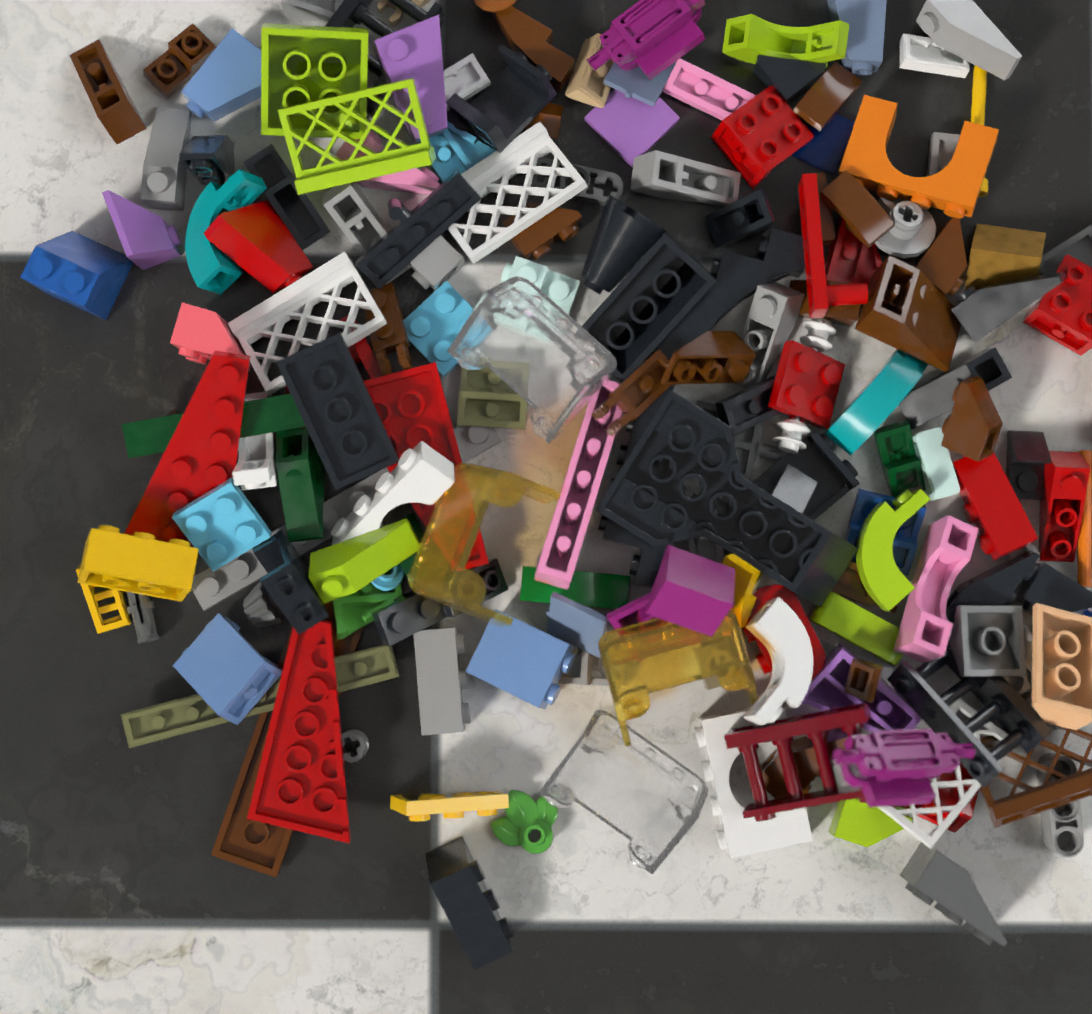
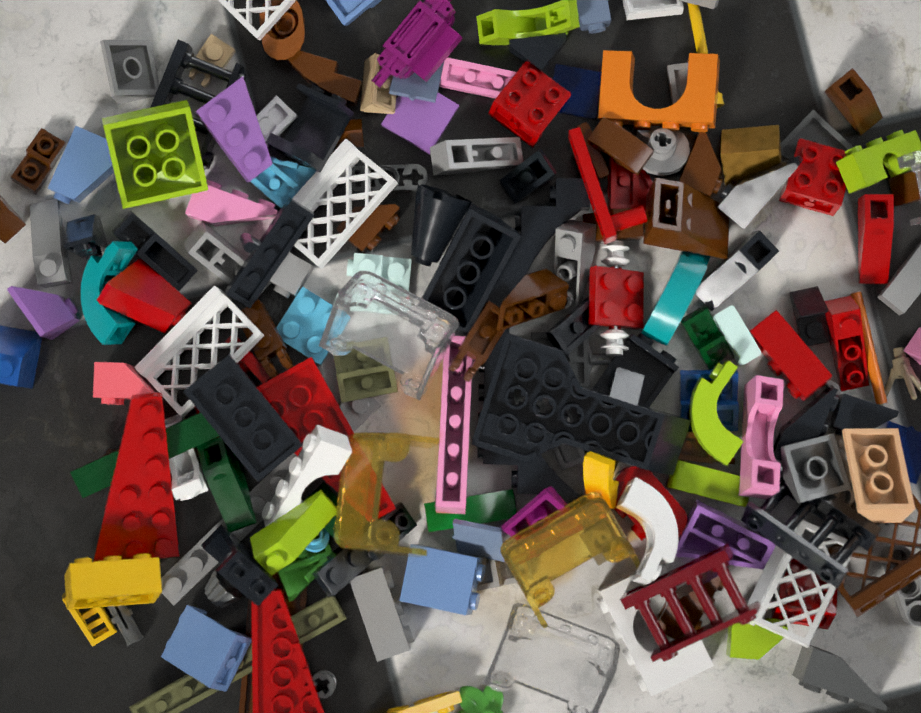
camera: 15 degrees left, 0 degrees up
(222, 524) = (172, 532): medium azure plate -> none
(365, 166) = (212, 214): lime fence -> none
(692, 591) = (564, 491): magenta slope -> none
(827, 96) = (574, 58): reddish brown slope -> none
(863, 679) = (721, 525): reddish brown slope -> none
(899, 764) = (762, 587): magenta piece -> none
(974, 421) = (756, 296): reddish brown slope -> none

